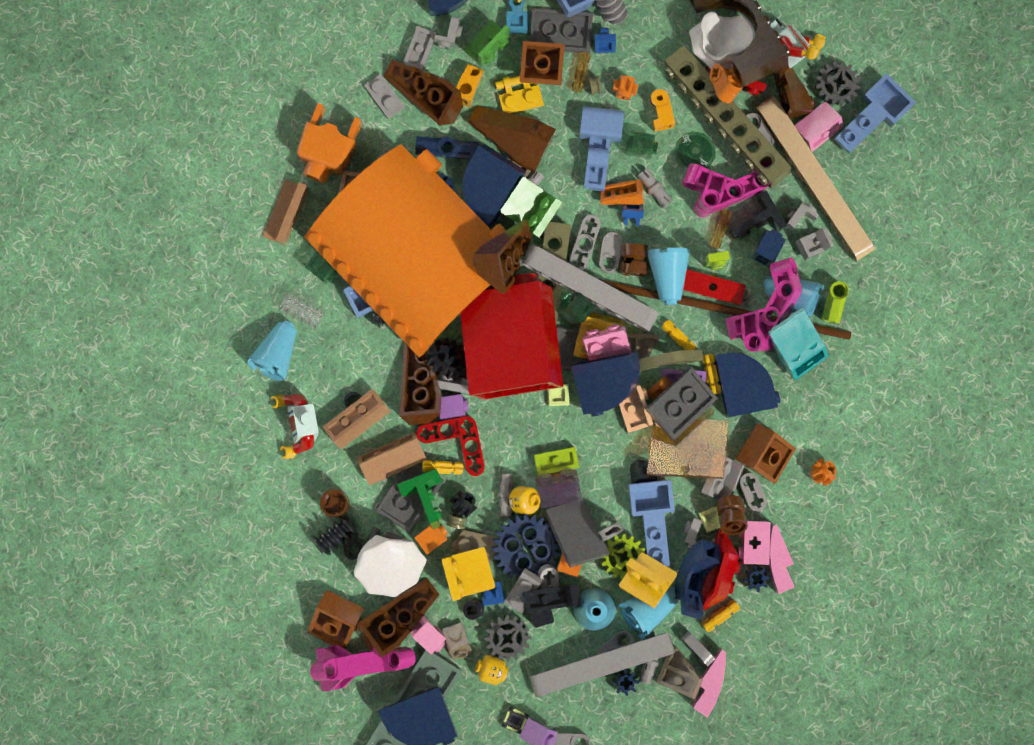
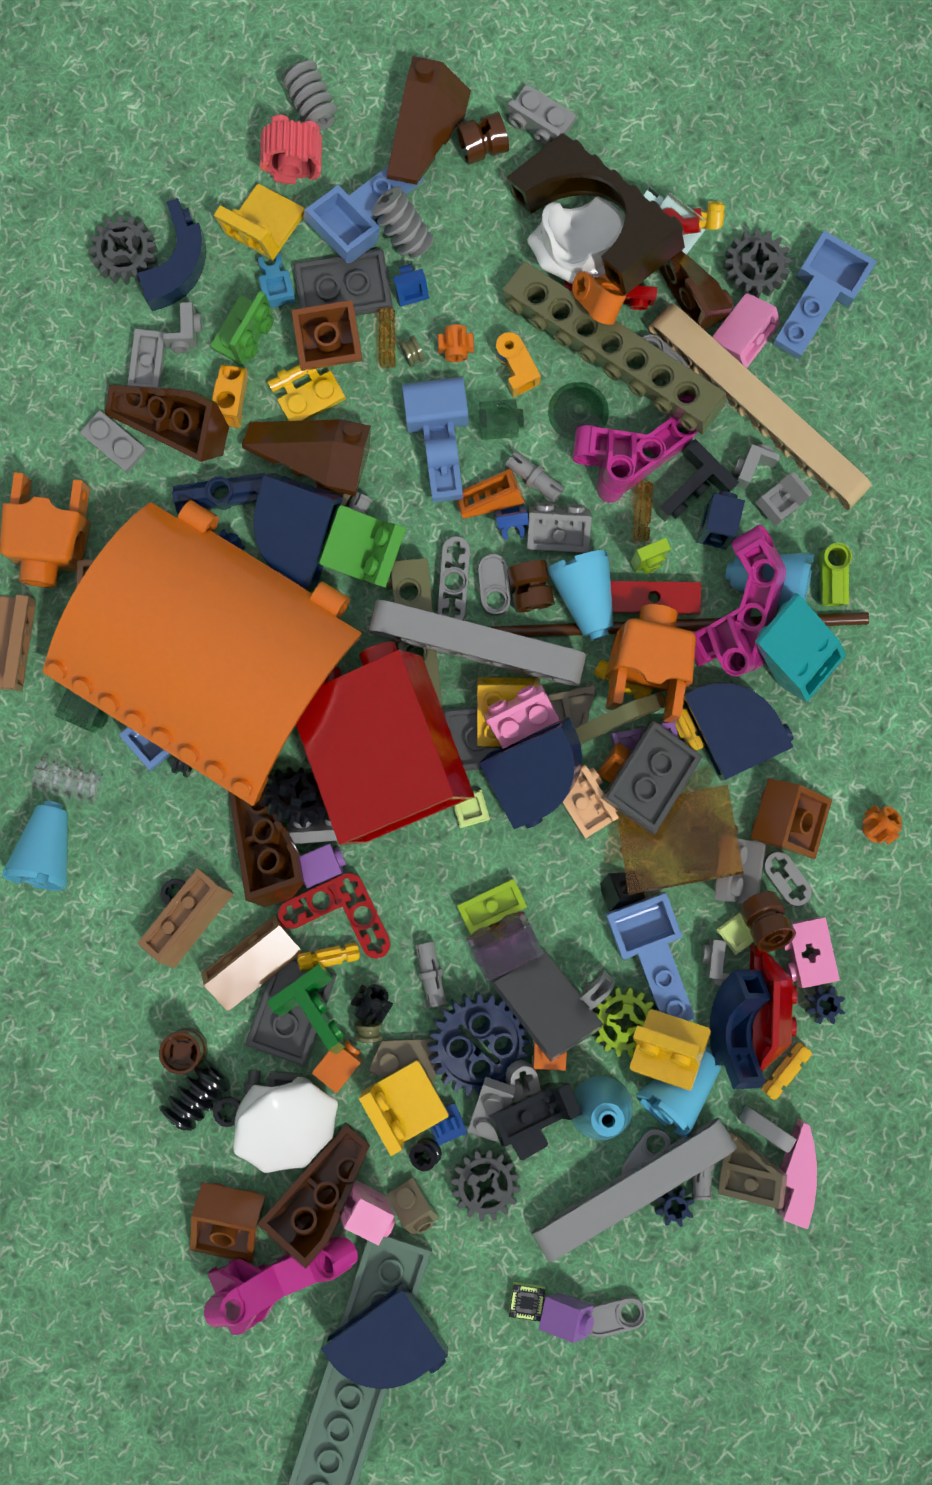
camera: 15 degrees left, 0 degrees up
(302, 423) = (106, 944): torso -> none
(491, 670) = (473, 1238): yellow head -> none
(501, 256) = (334, 628): reddish brown wedge -> none
(524, 500) = (459, 976): yellow head -> none
(575, 308) = (463, 676): clear green brick -> none
(662, 226) = (559, 528): none -> light grey bracket
(701, 324) = (654, 656): none -> orange piece
(778, 561) = (852, 972): bright pink slope -> none

